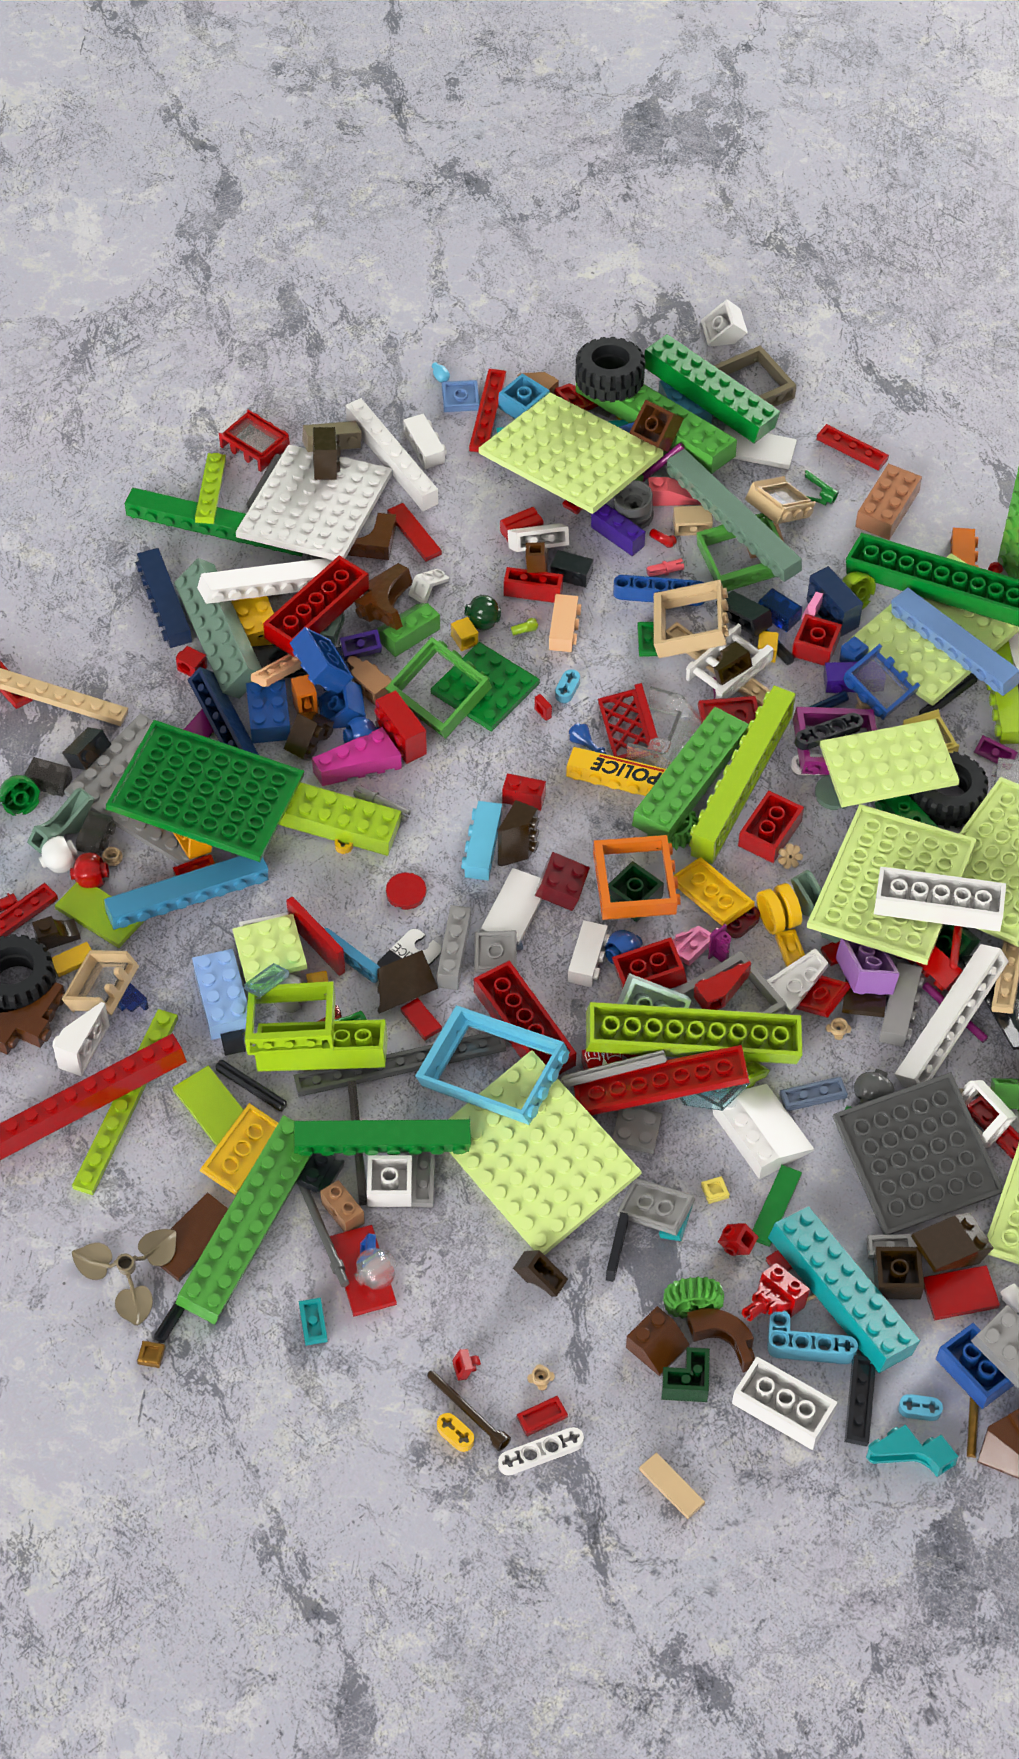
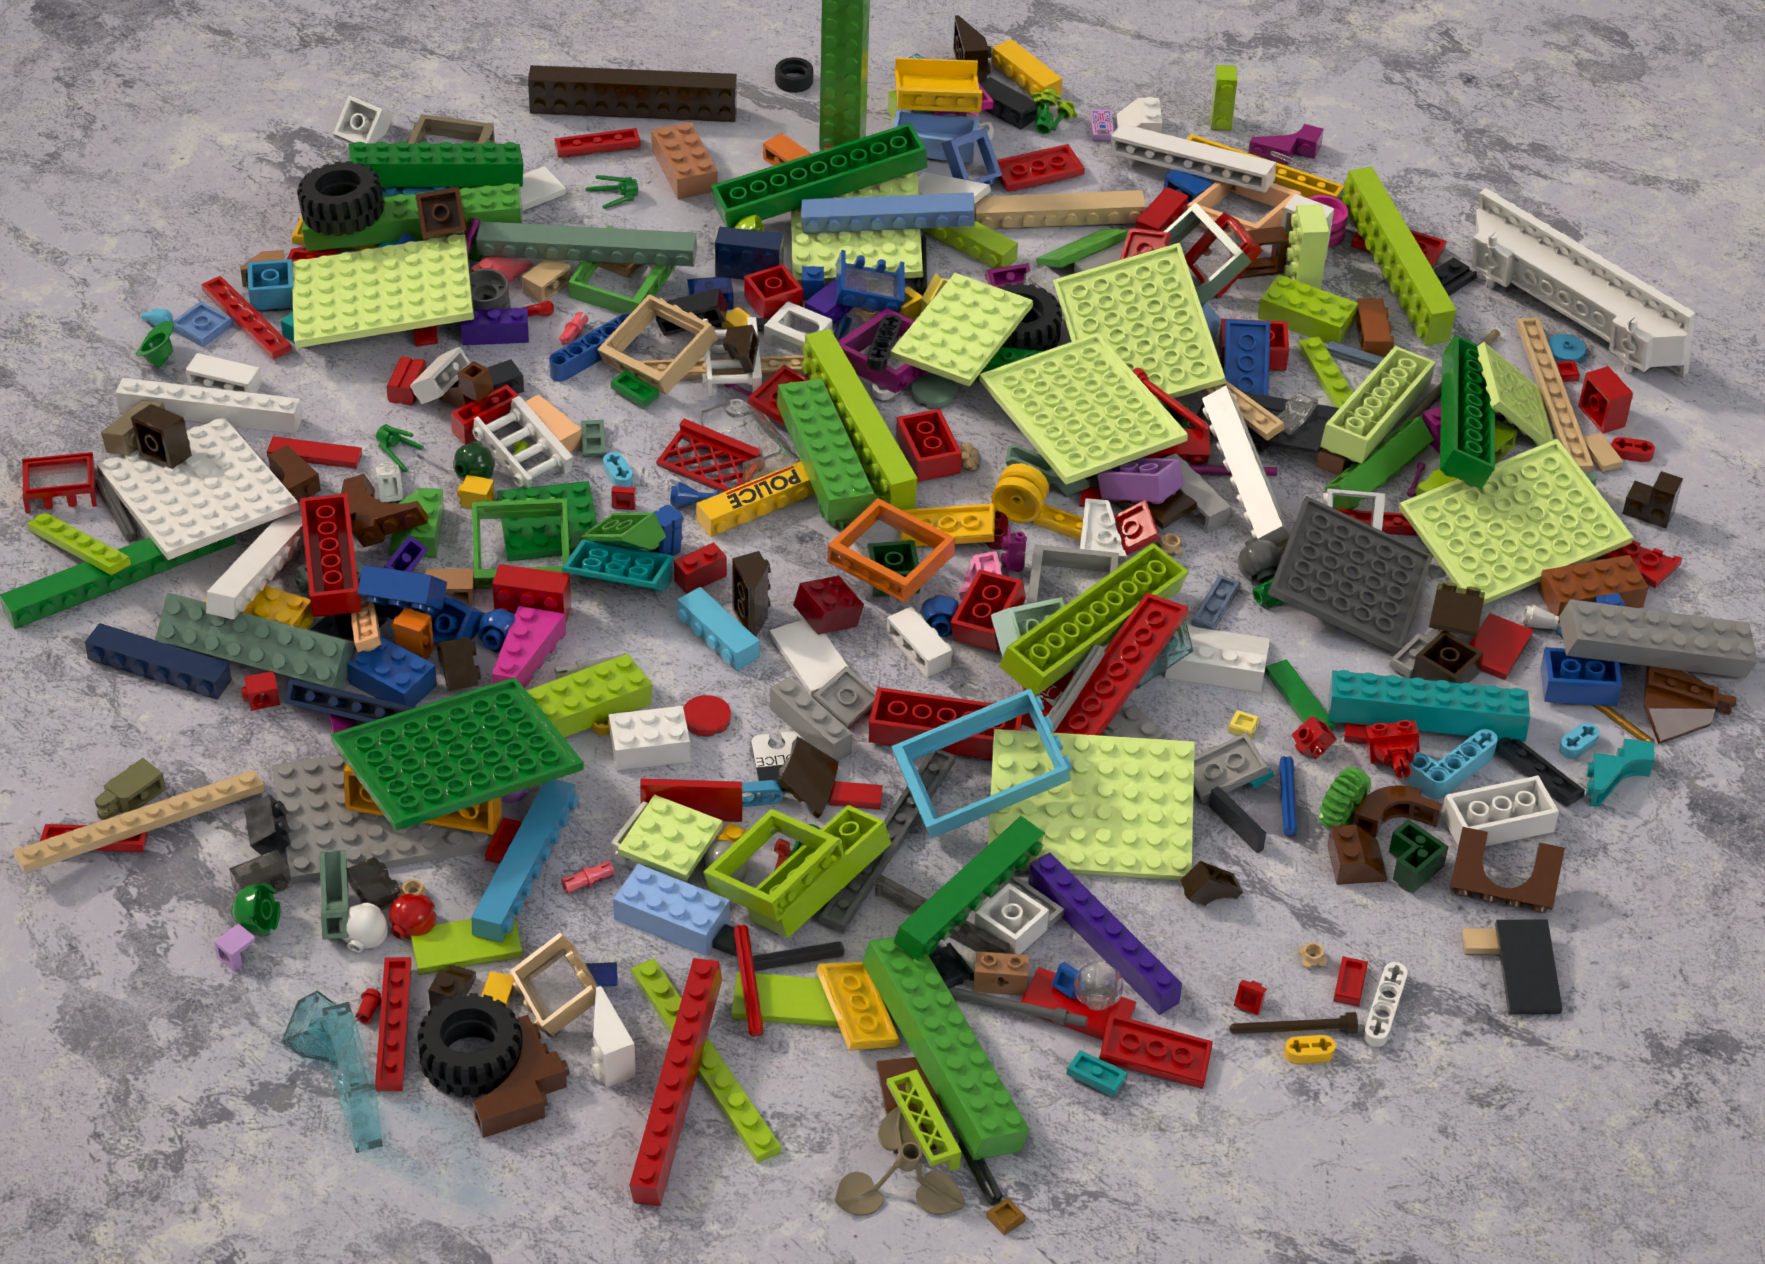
camera: 50 degrees left, 10 degrees down
(52, 665) = (130, 789): none -> olive hinge
(179, 1257) = (927, 1114): none -> lime fence
(201, 1076) = (748, 980): none -> red axle
(209, 932) = (587, 877): none -> coral pin
(266, 980) = (714, 853): clear light blue tile -> none
(350, 876) = (649, 738): none -> white brick
(364, 1342) = (1156, 1051): none -> red tile
(412, 392) = (157, 344): none -> green piece
(434, 1241) = (1106, 934): none -> dark purple brick
(464, 556) = (390, 437): none -> green plant
(468, 751) = (621, 565): none -> teal slope
(497, 731) = (628, 530): none -> bright green slope
(529, 750) = (671, 523): none -> blue brick
(543, 616) = (533, 428): none -> white fence
(581, 653) = (593, 437): none -> sand green slope
(659, 1517) = (1528, 966): none -> black tile
(674, 1262) = (1288, 796): none -> blue axle
(704, 1426) = (1471, 878): none -> reddish brown arch
(719, 989) = (1062, 575): red slope -> none
(779, 500) = (605, 212): tan window -> none
(802, 664) = (780, 324): none -> white panel
(814, 605) = (745, 268): bright pink slope -> none
(895, 719) = (912, 304): none -> yellow panel
(915, 428) = (632, 93): none -> dark brown brick
(940, 899) = (1142, 382): white brick -> none

